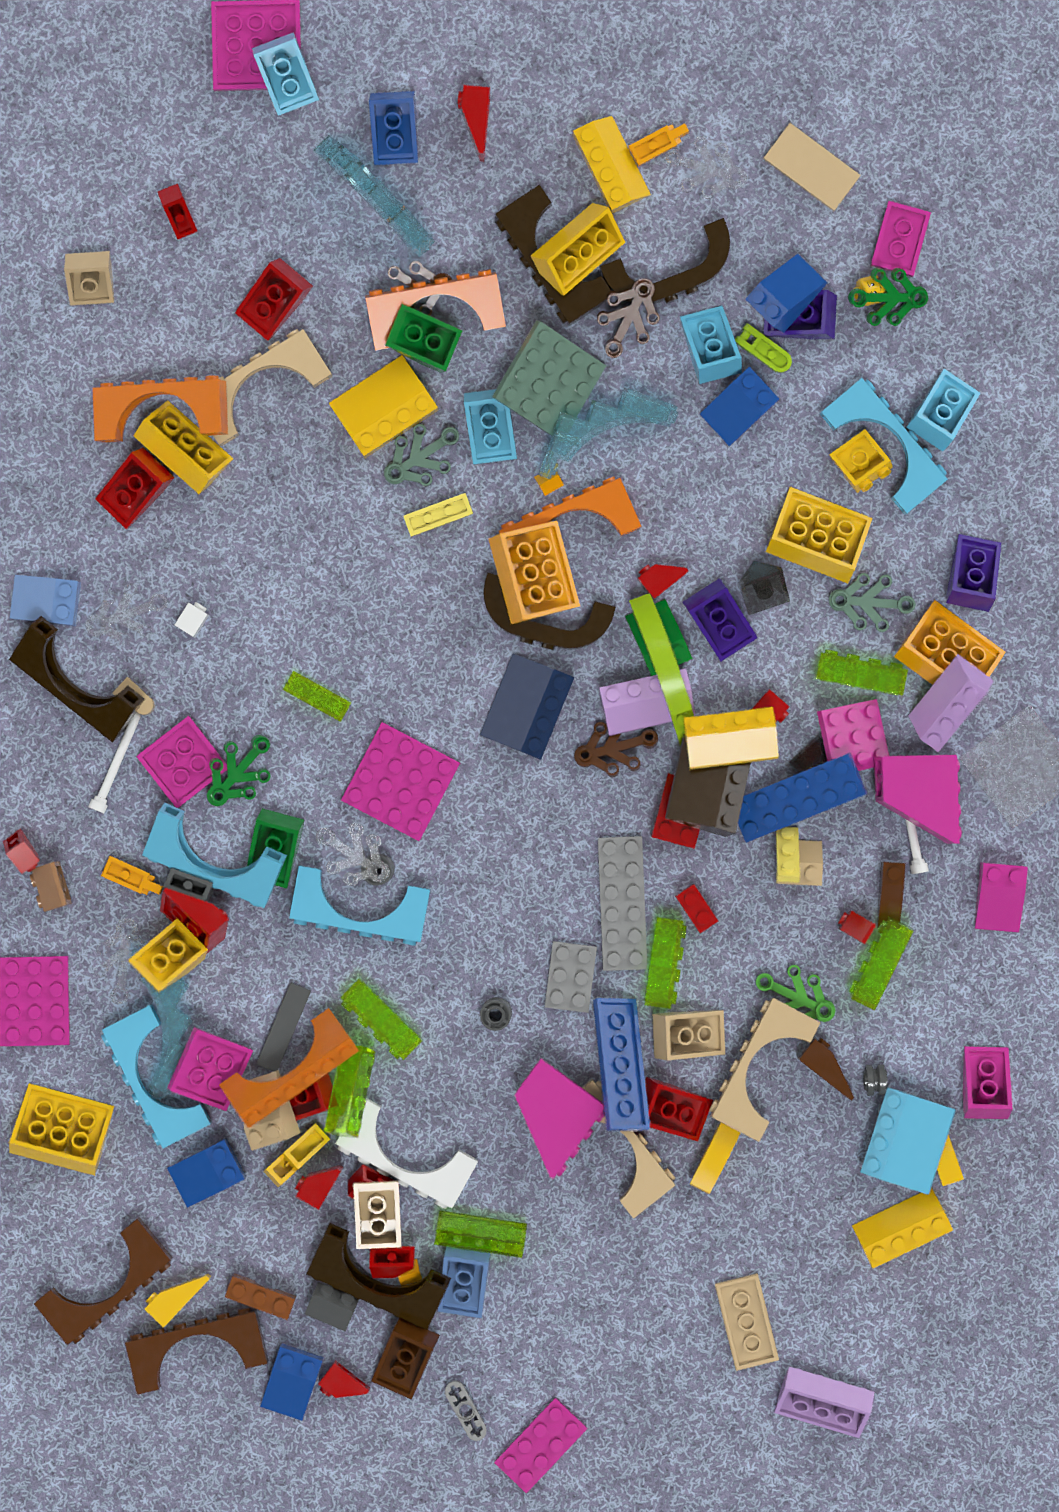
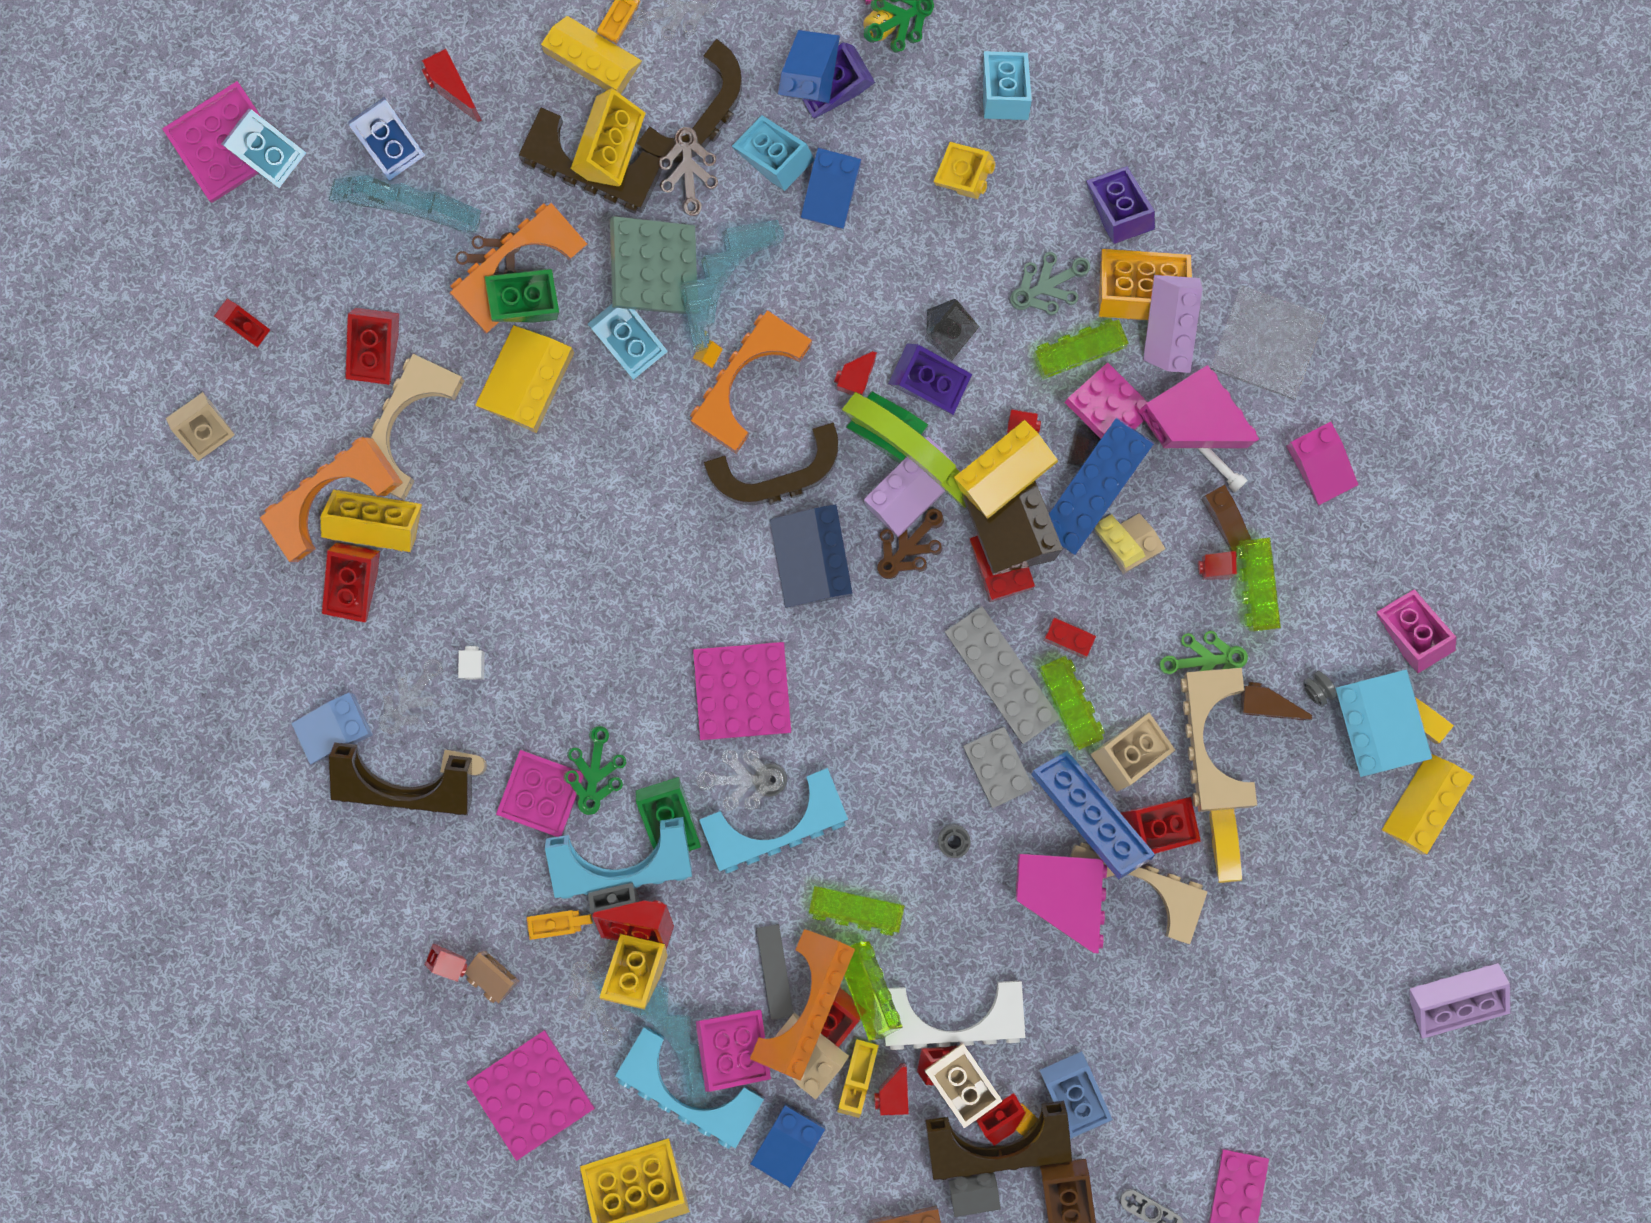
camera: 30 degrees left, 5 degrees down
(99, 802) = (488, 875): white piece -> none
(317, 696) = (622, 662): clear neon green tile -> none
(418, 457) = (582, 402): sand green plant -> none
(438, 514) = (630, 441): light yellow plate -> none
(480, 1234) = (1064, 1044): clear neon green brick -> none
(534, 572) = (743, 435): light orange slope -> none
(746, 1322) = (1346, 973): tan tile -> none
(764, 349) = (822, 128): lime plate -> none
(819, 535) = (969, 255): yellow slope -> none
(862, 404) = (937, 121): medium azure arch -> none

